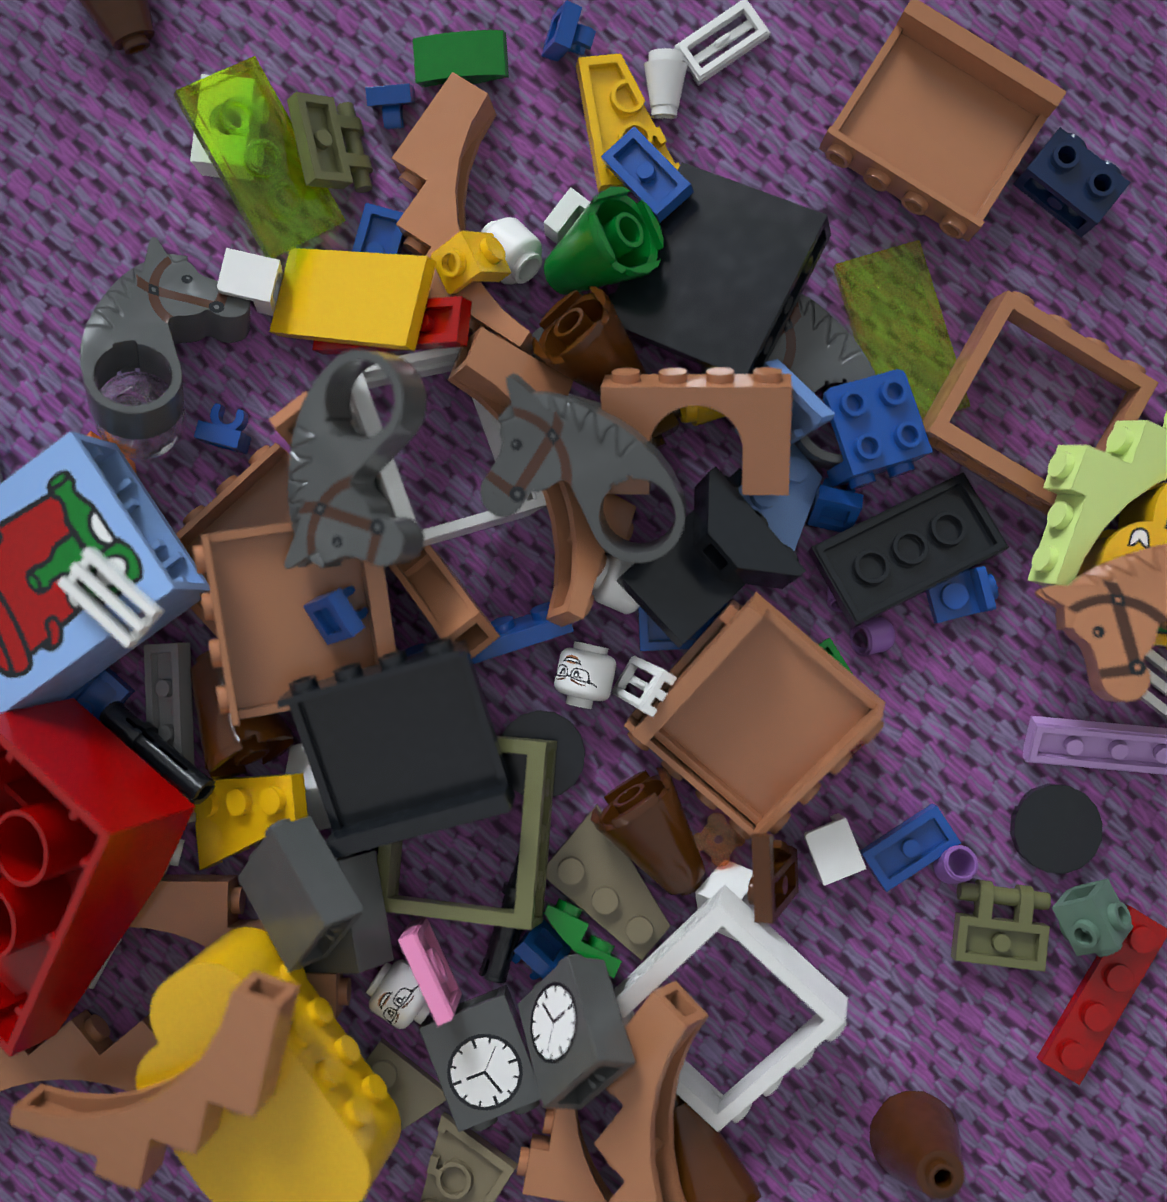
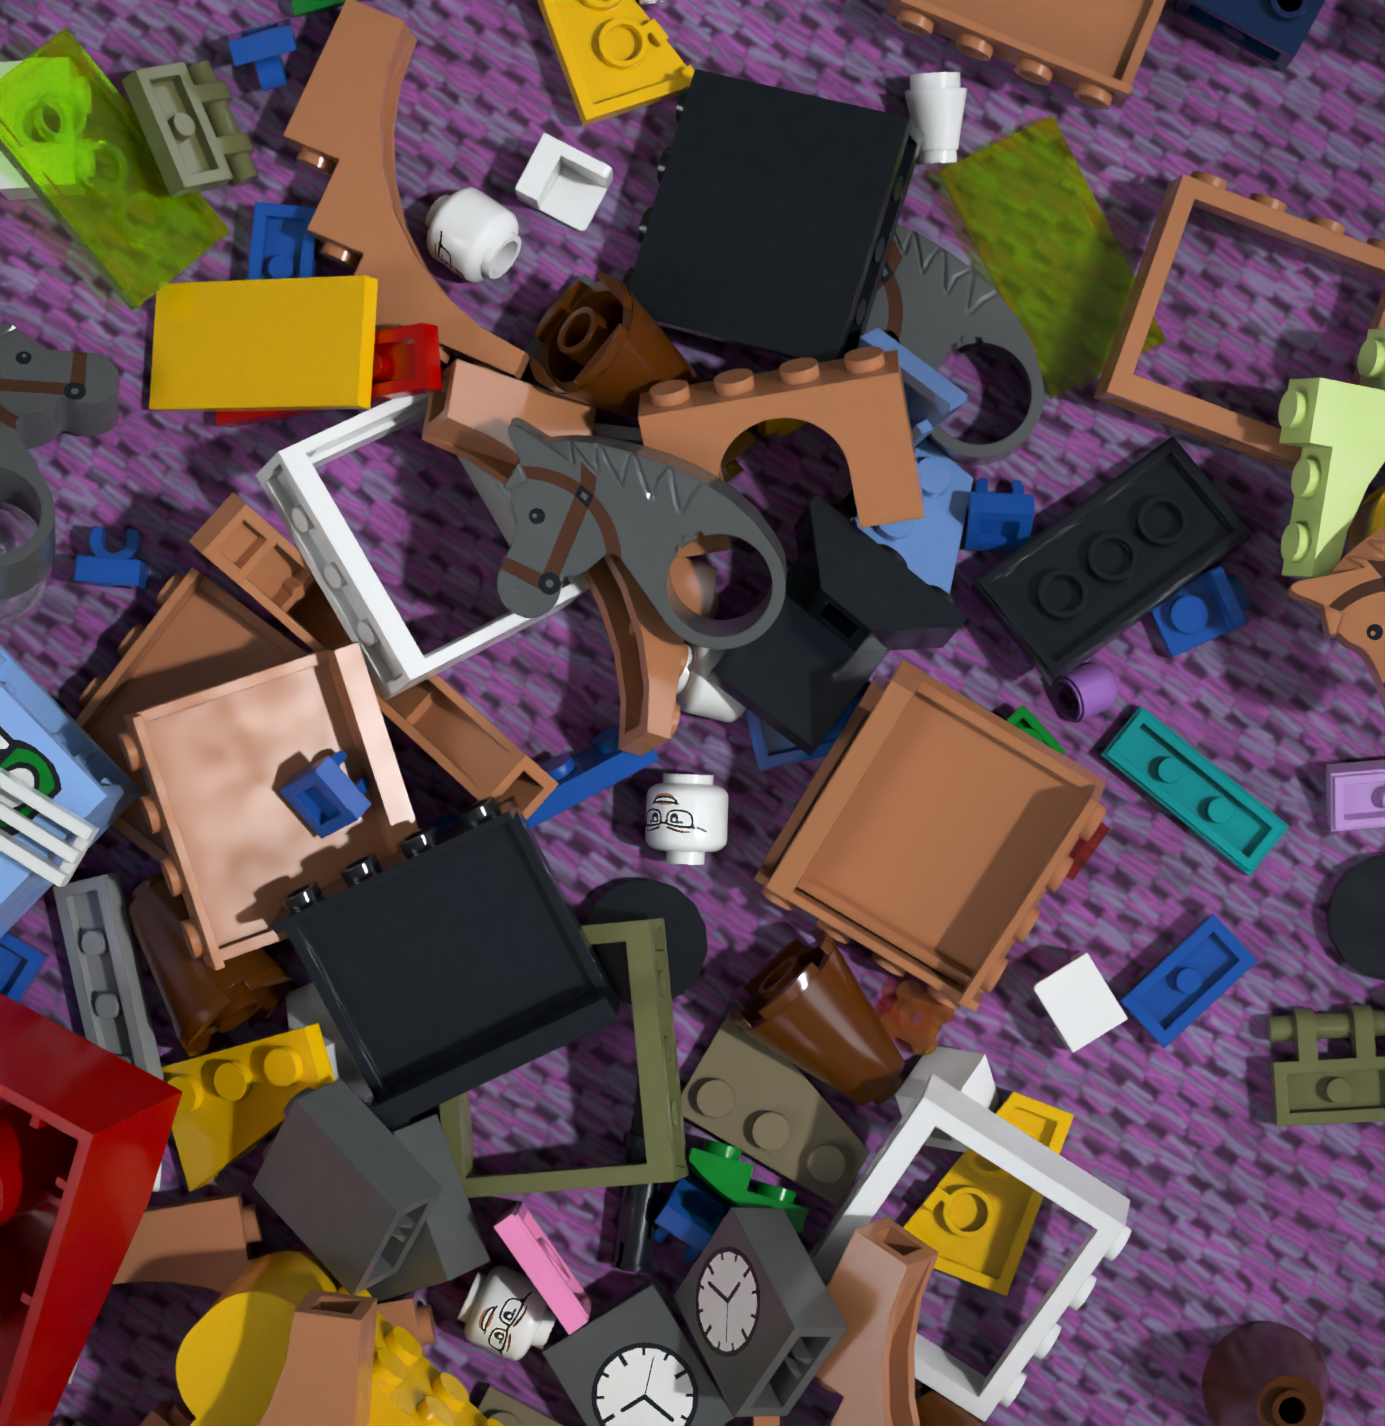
camera: 15 degrees left, 0 degrees up
(166, 760) = (84, 1017): black pin -> none
(251, 279) = (113, 341): white panel -> none
(334, 469) = (292, 594): dark grey animal -> none
(470, 258) = (423, 264): yellow bracket -> none
(606, 244) = (609, 210): green cone -> none
(647, 173) = (649, 97): blue plate -> none
(651, 690) = (781, 821): white tile -> none
(740, 988) = (981, 1212): none -> yellow wing
(773, 878) = (999, 1050): reddish brown wing -> none
(844, 219) = (937, 110): none -> white cone
(875, 429) = (1033, 399): blue bracket -> none
(936, 717) = (1194, 790): none -> teal tile
(956, 865) = (1255, 993): medium lavender piece -> none

